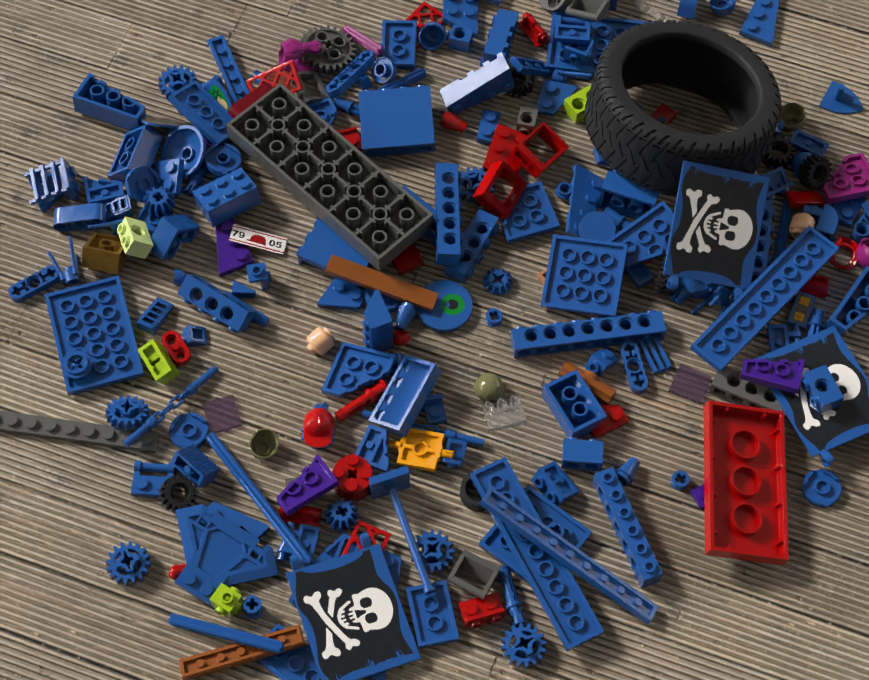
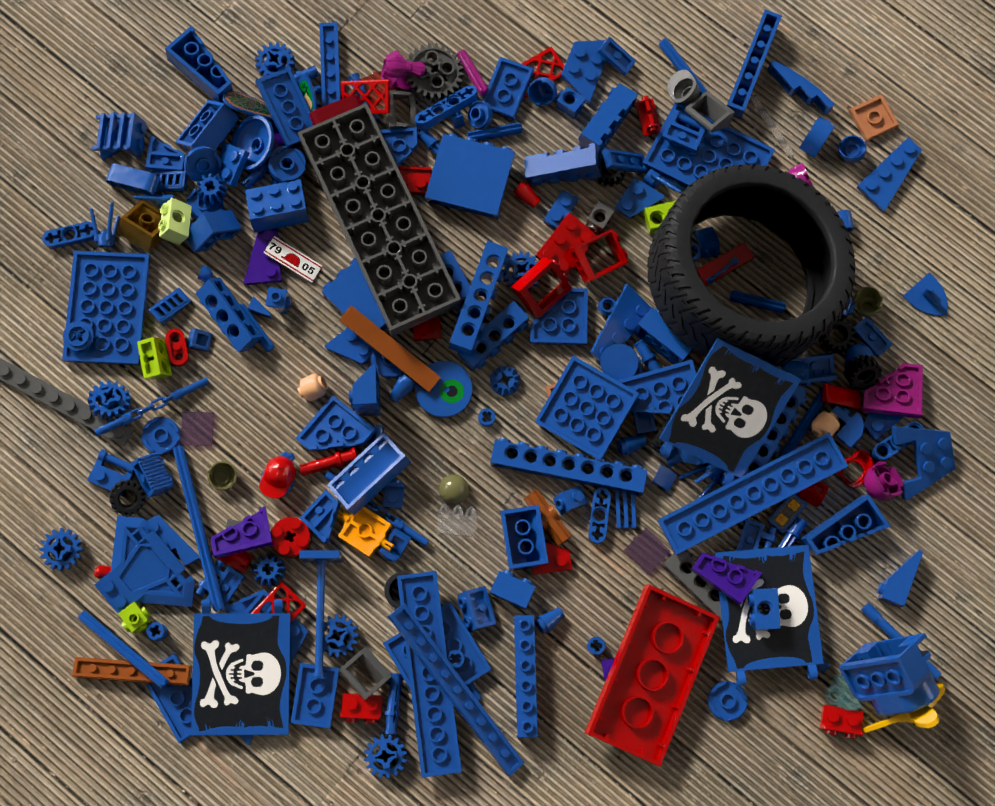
camera: 20 degrees right, 15 degrees up
(401, 337) = (389, 409): red plate -> none
(577, 56) = (676, 165): blue bracket -> none
(635, 297) = (629, 444): none -> blue cone
(678, 316) = (664, 478): none -> blue slope

